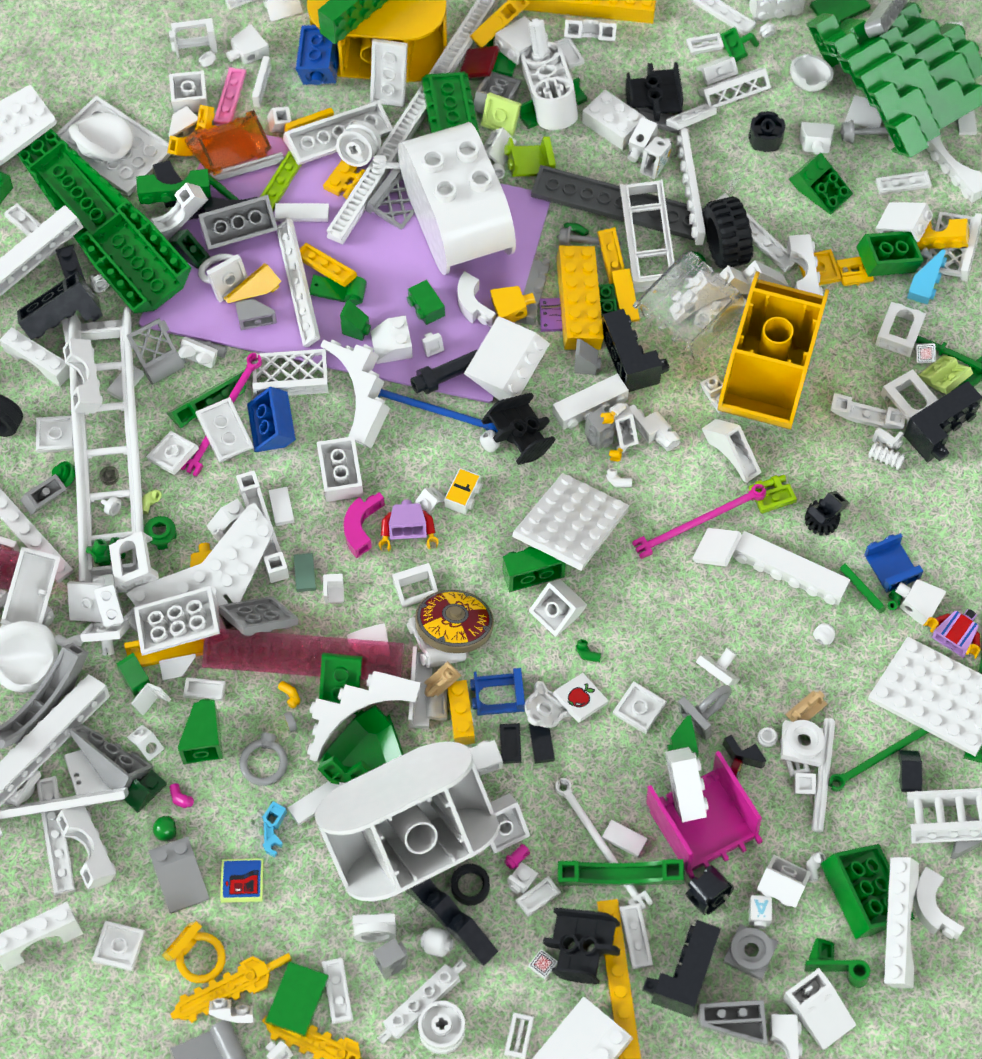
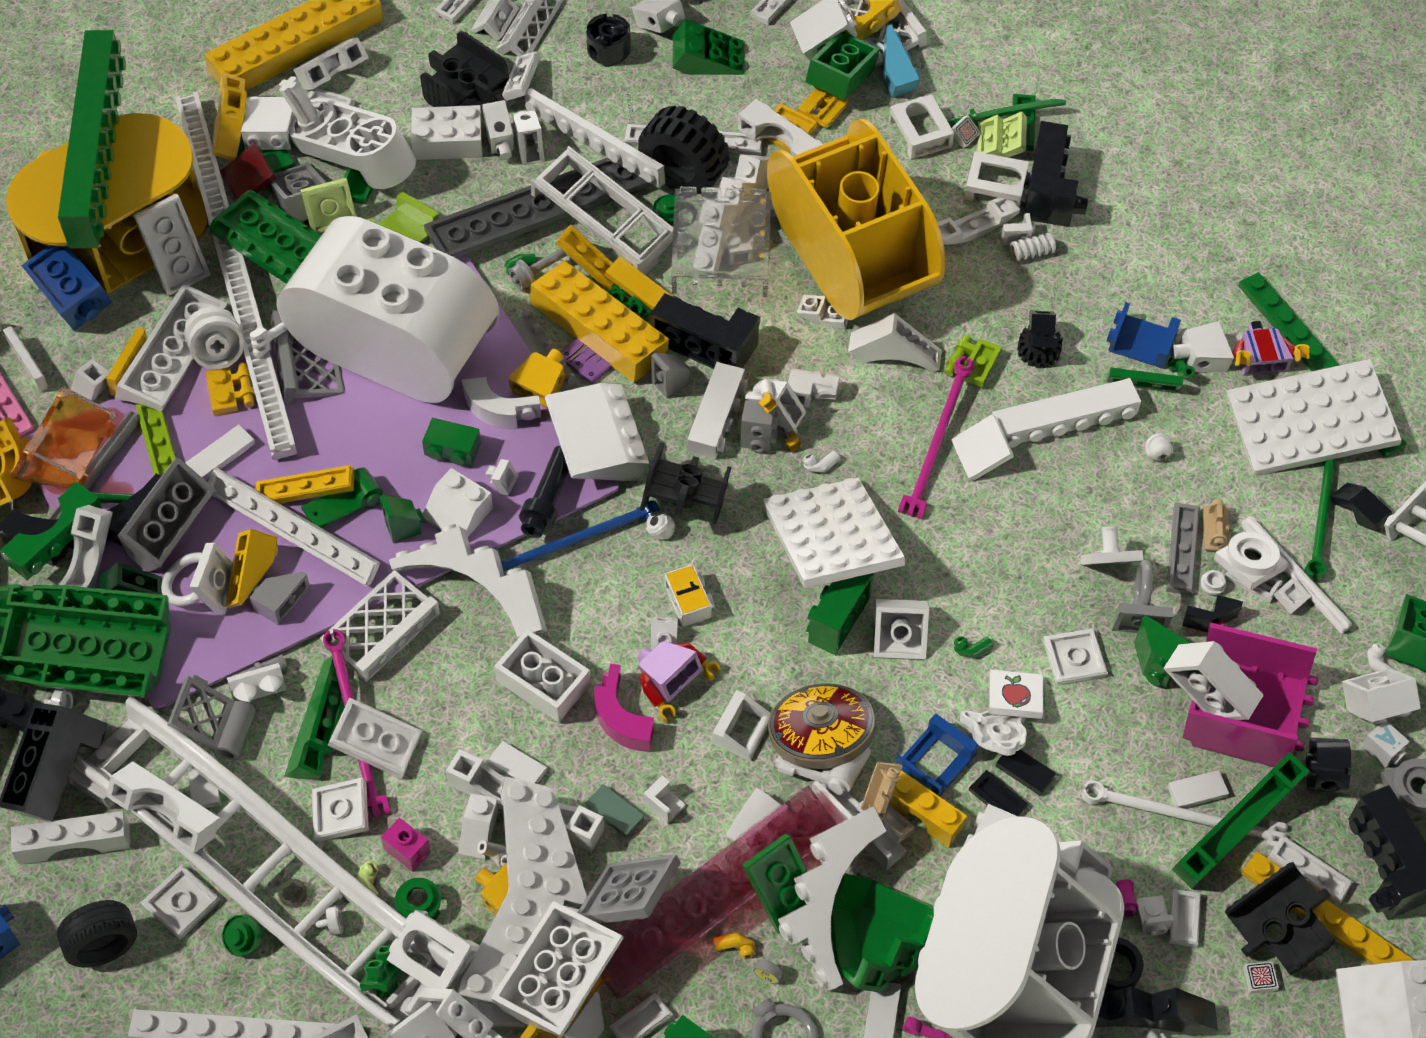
camera: 45 degrees left, 5 degrees down
(43, 494) = (243, 975): light grey slope -> none
(183, 497) = (405, 844): none -> dark pink head
(271, 420) = (412, 689): blue slope -> none
(773, 703) = (1183, 549): none -> light grey tile

